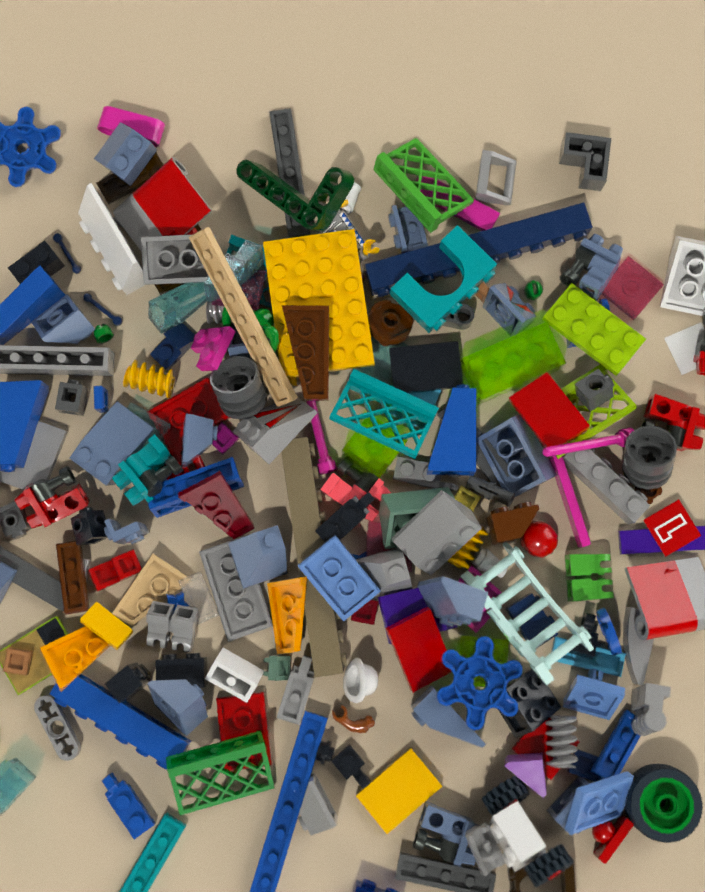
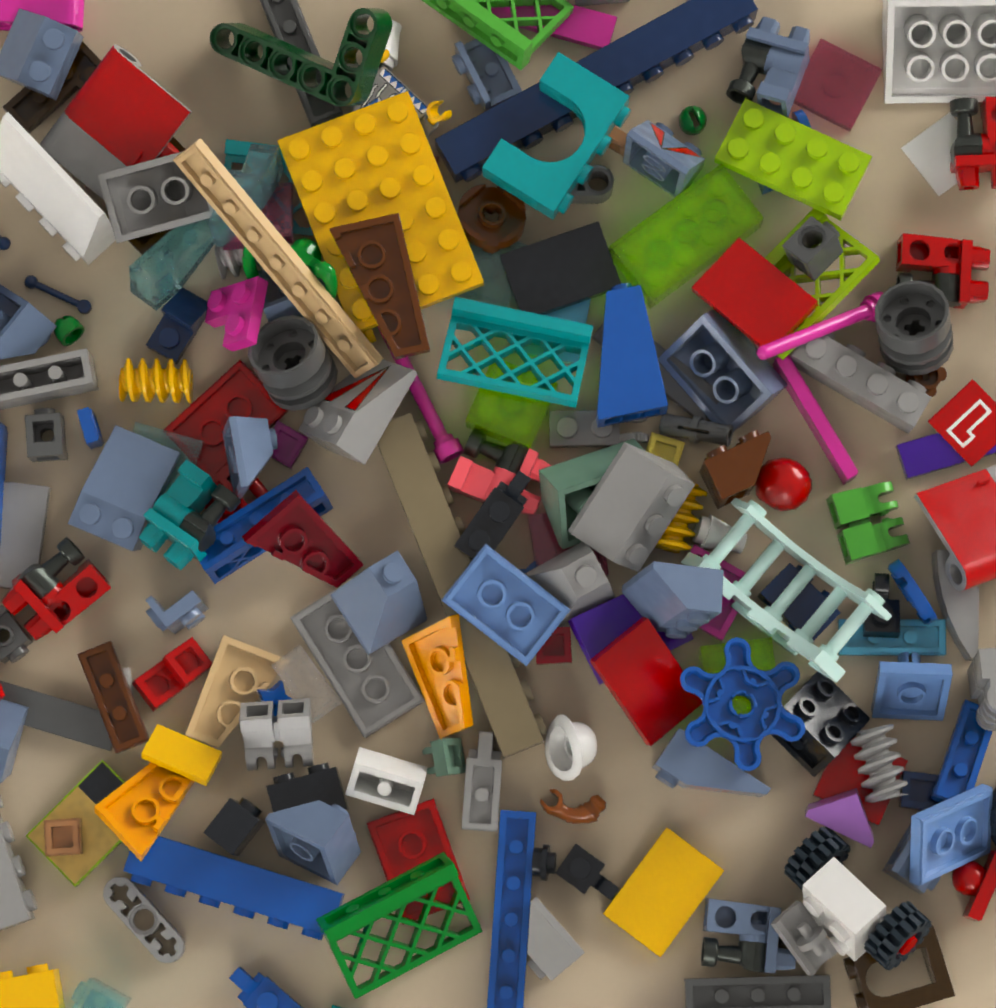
camera: 15 degrees left, 0 degrees up
(89, 526) = (121, 617): black brick -> none

